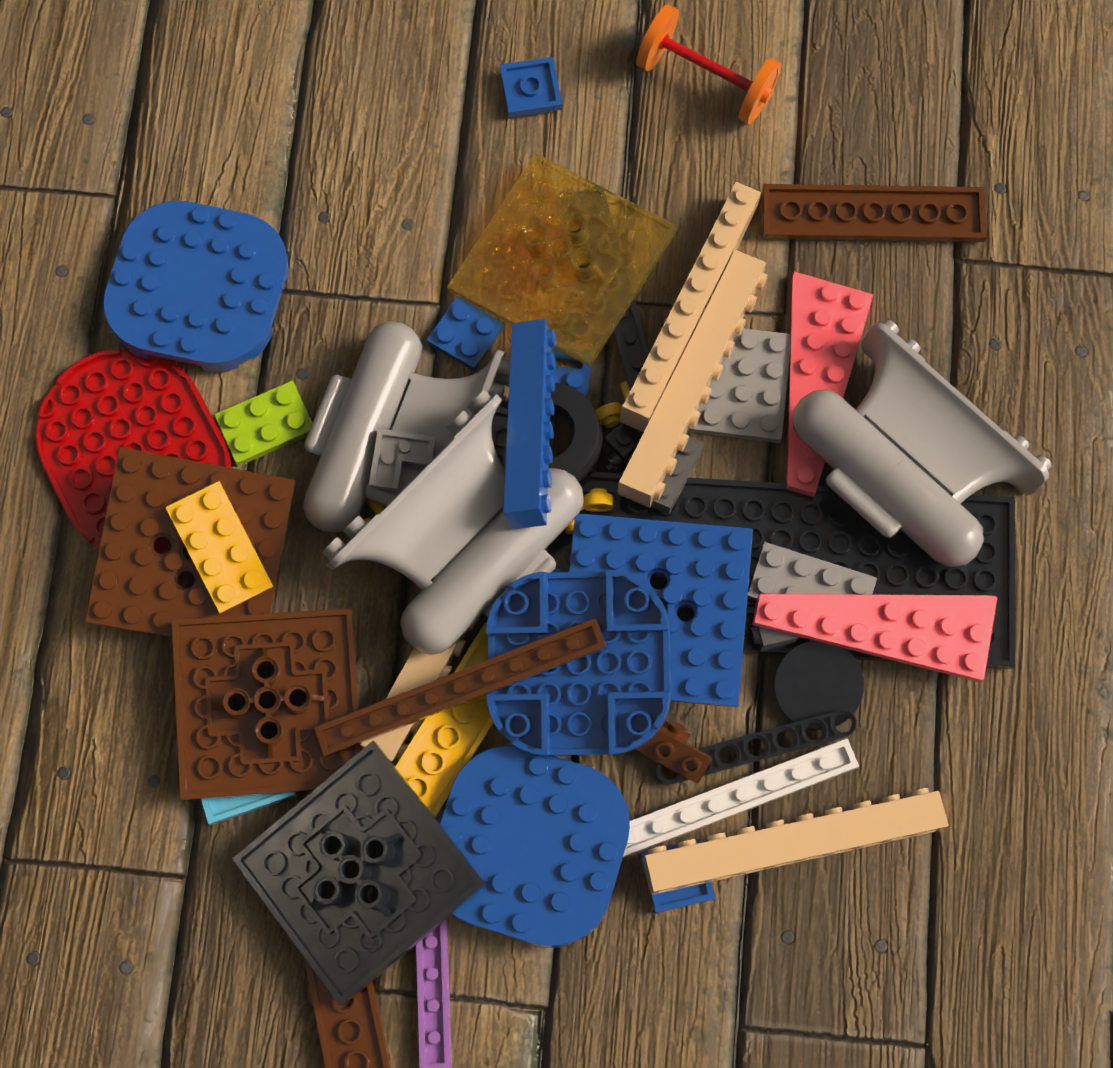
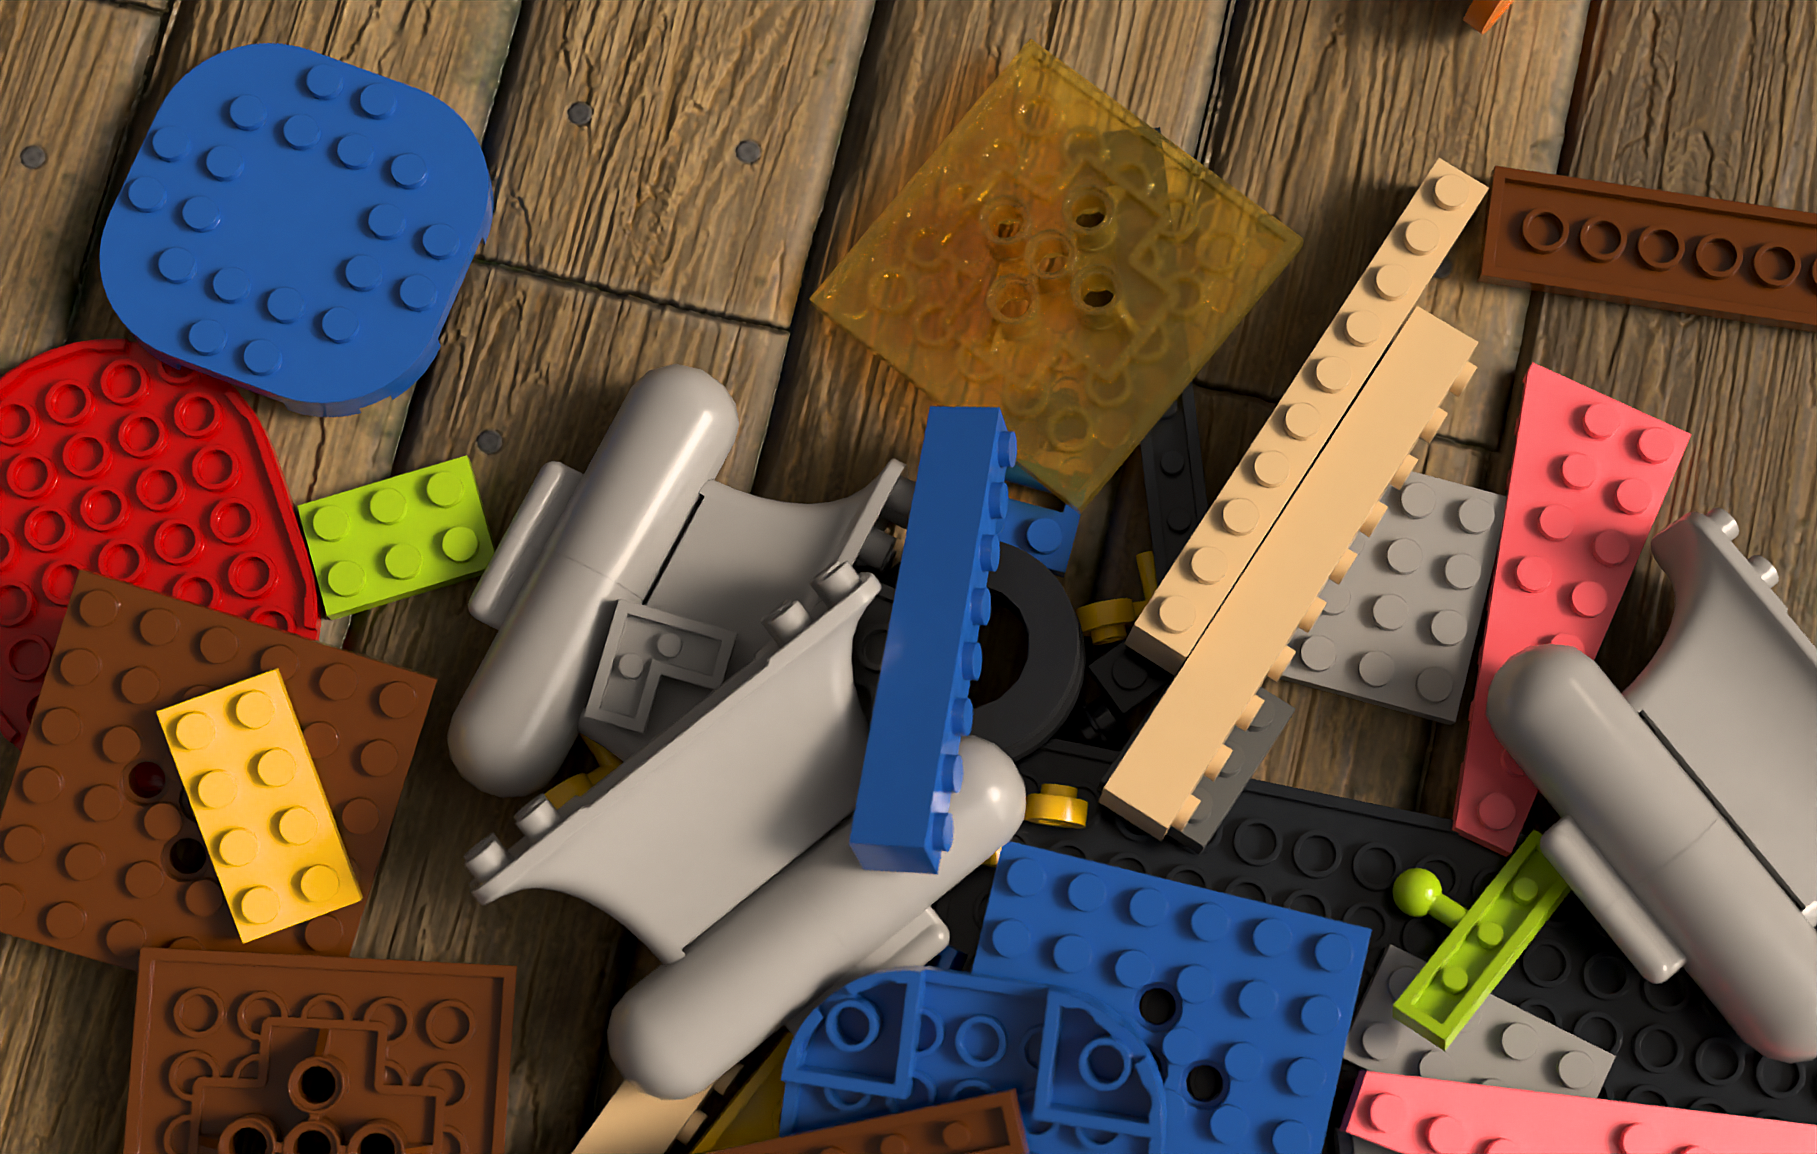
camera: 10 degrees right, 5 degrees up
(465, 333) = (834, 402): blue plate -> none
(805, 532) = (1482, 939): none -> lime plate

